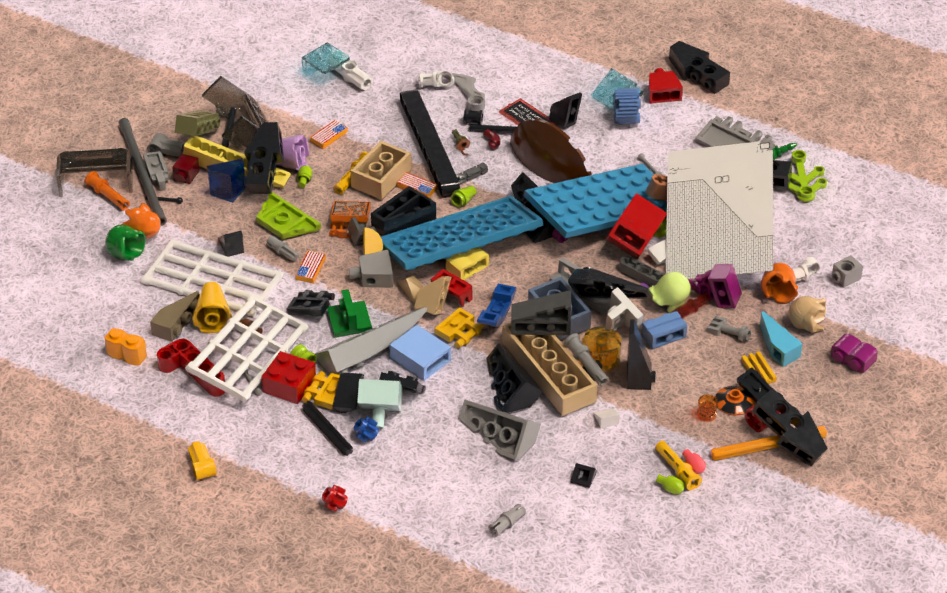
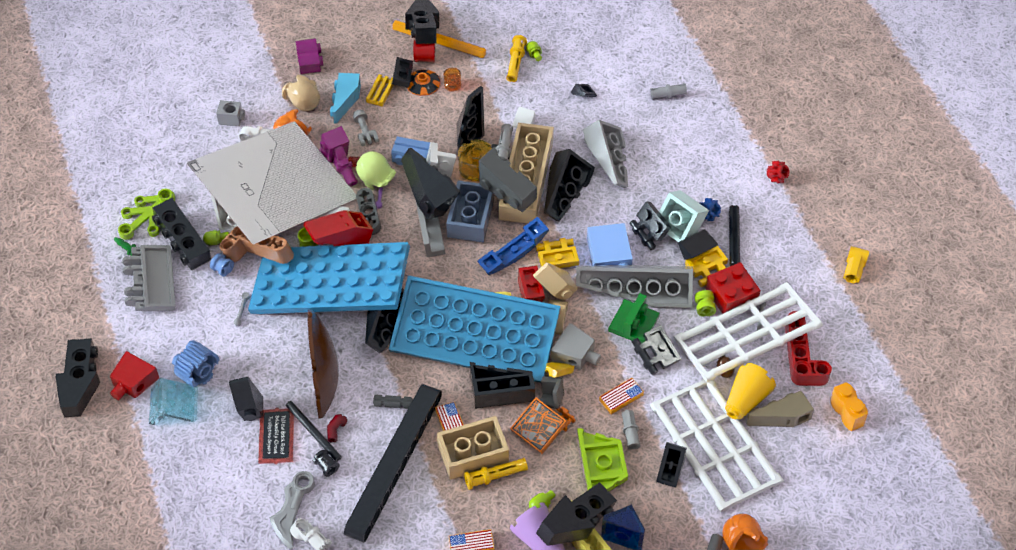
camera: 140 degrees left, 10 degrees up
(125, 242) = (777, 521): green hair -> none
(461, 141) = (364, 444): piece -> none
(462, 196) = (428, 377): lime cone -> none
(697, 463) = (502, 55): coral cylinder -> none

